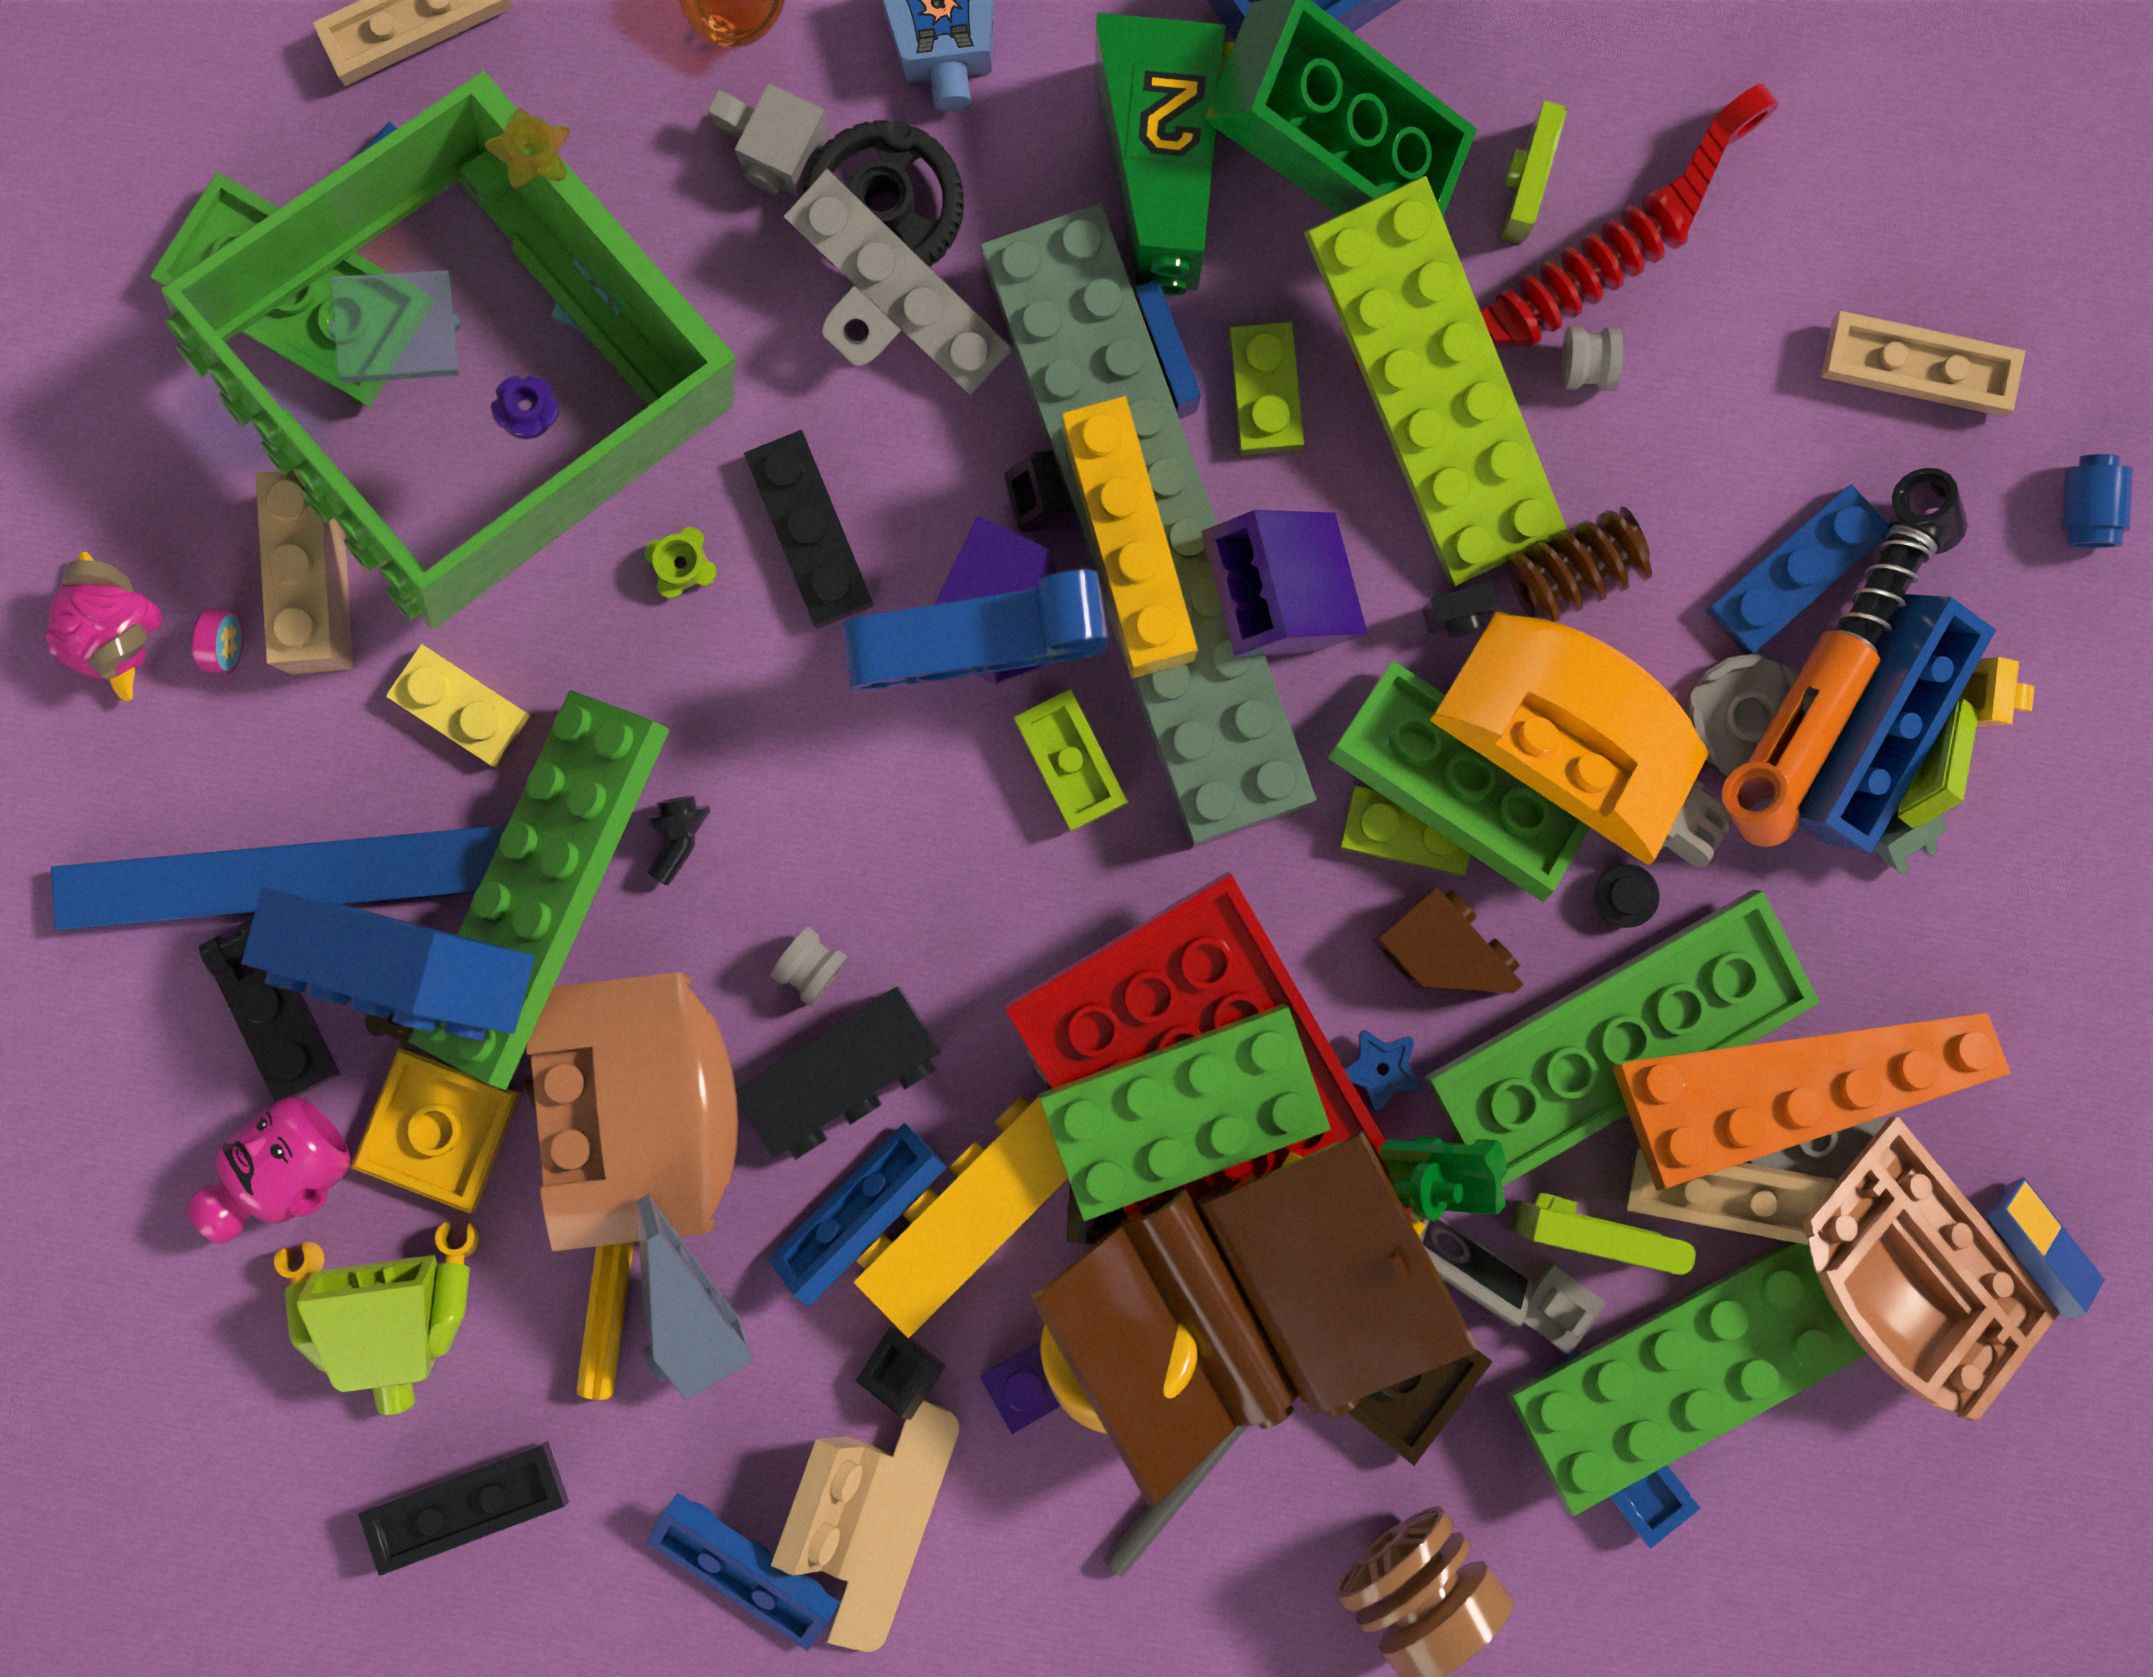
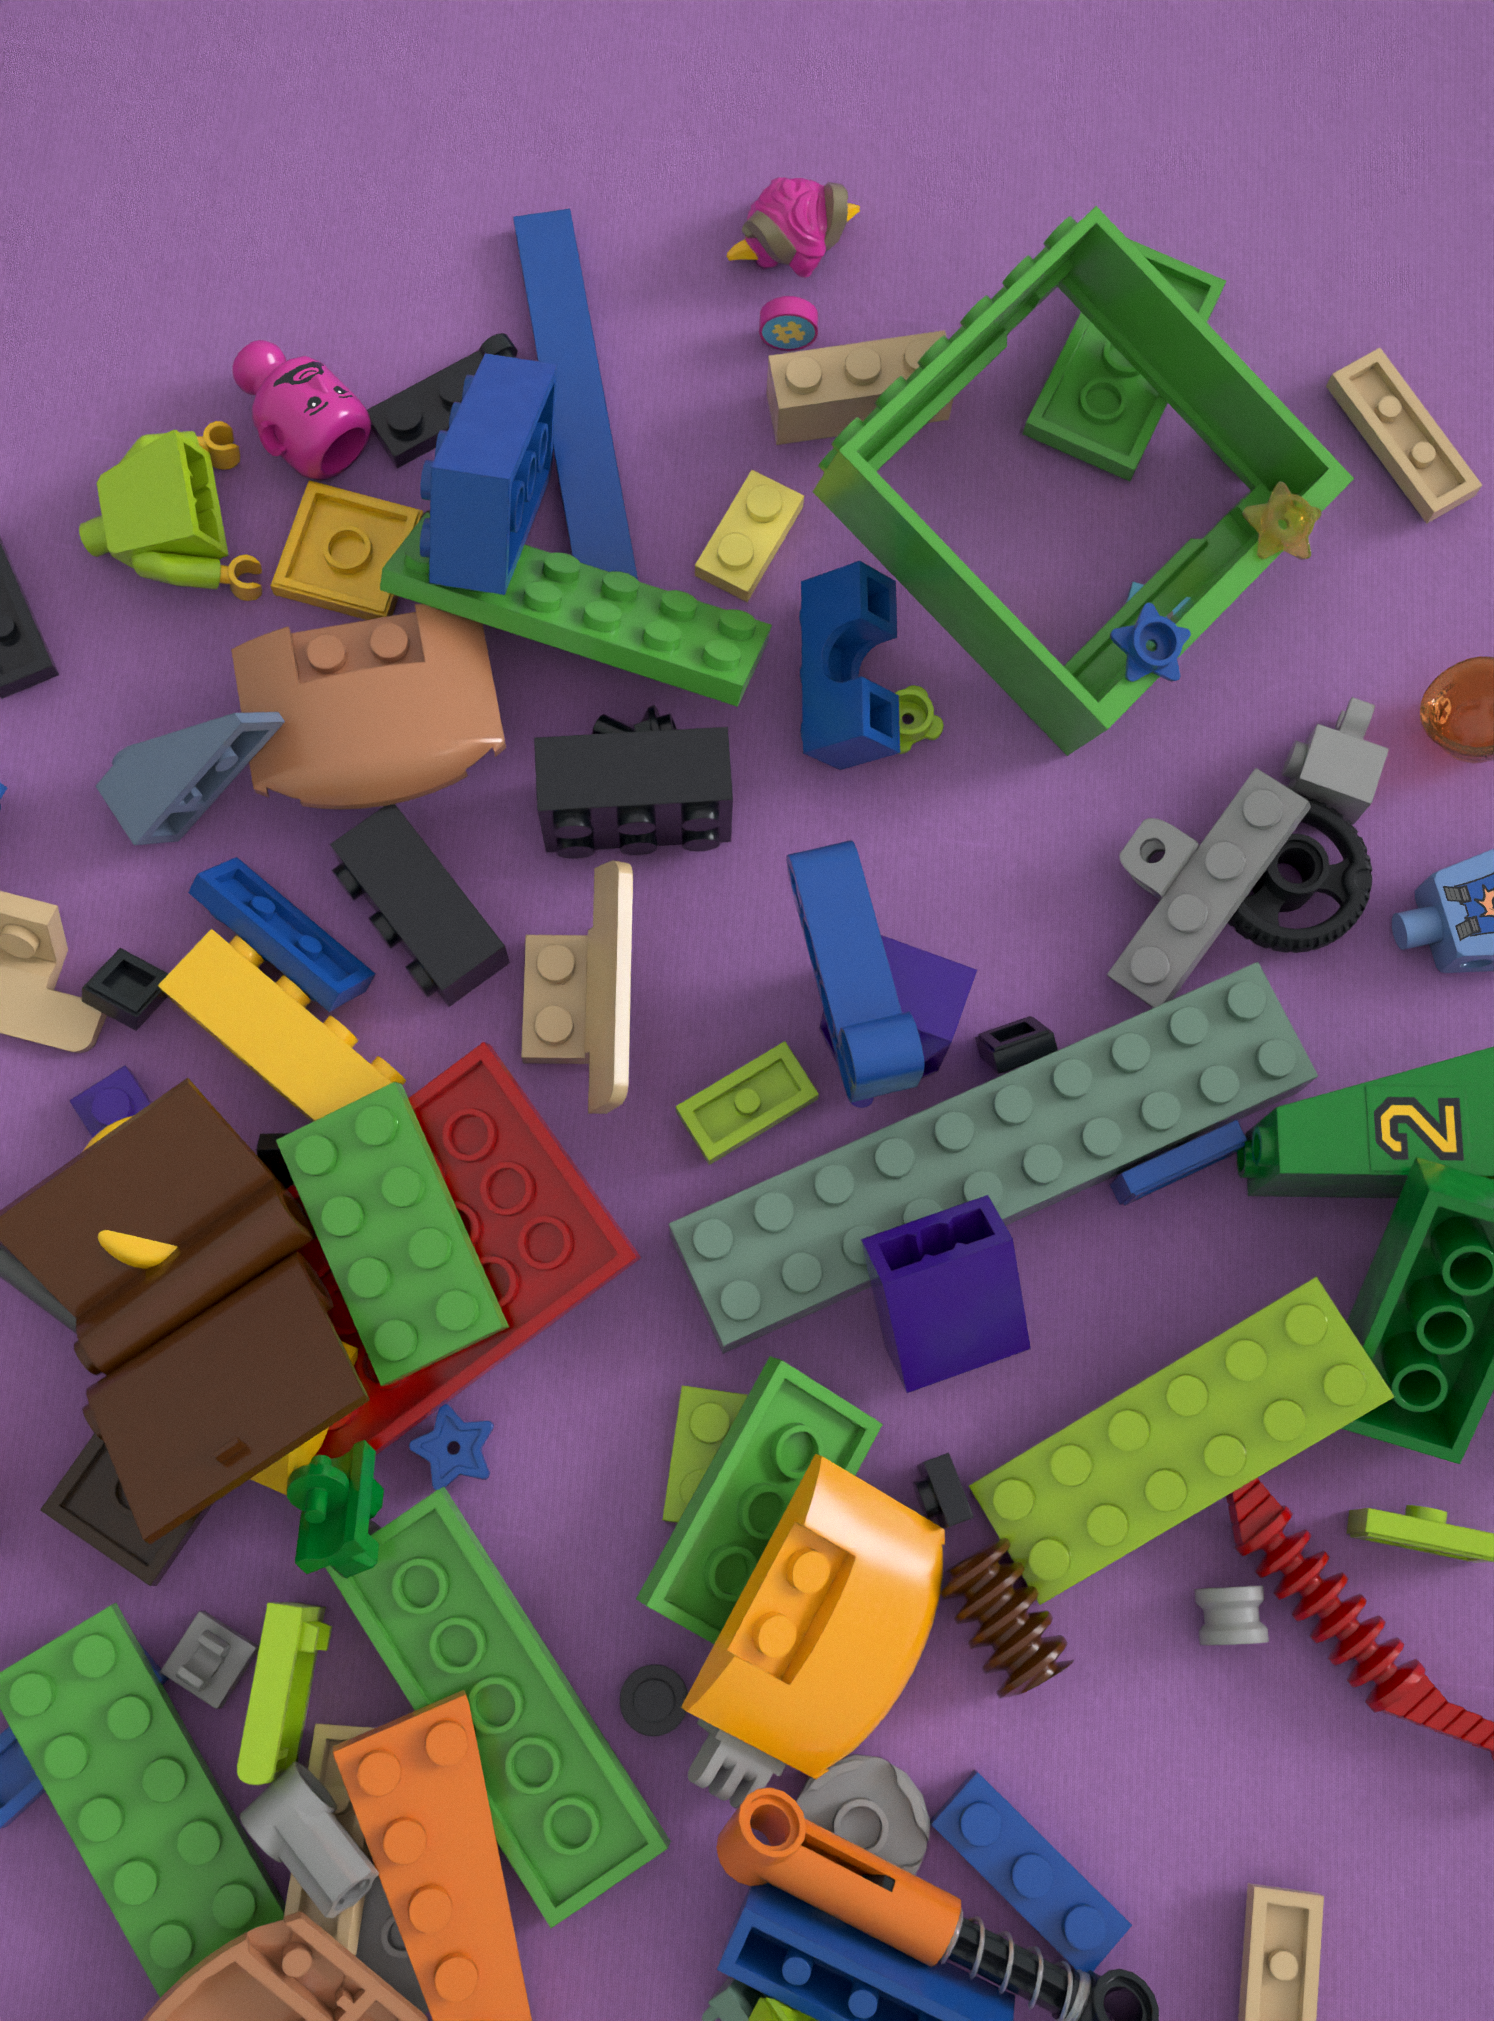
camera: 80 degrees right, 10 degrees down
(394, 326) = (1093, 417): clear light blue piece -> none
(530, 422) = (1017, 542): dark purple plate -> none
(573, 618) = (841, 620): none -> blue arch
(604, 1321) = (160, 712): yellow axle -> none
(652, 283) = (1163, 633): none -> blue plate
(746, 841) = (634, 791): none -> black brick
(808, 529) = (954, 835): black plate -> none
(809, 966) = (521, 868): light grey wheel -> none
(947, 912) = (582, 992): none -> tan plate
(1128, 537) = (971, 1119): yellow brick -> none
(1266, 388) = (1153, 1271): lime plate -> none
(1443, 951) = (577, 1500): reddish brown slope -> none
(1477, 1271) = (246, 1558): slope -> none
(1728, 1221) = (298, 1827): none -> light grey piece

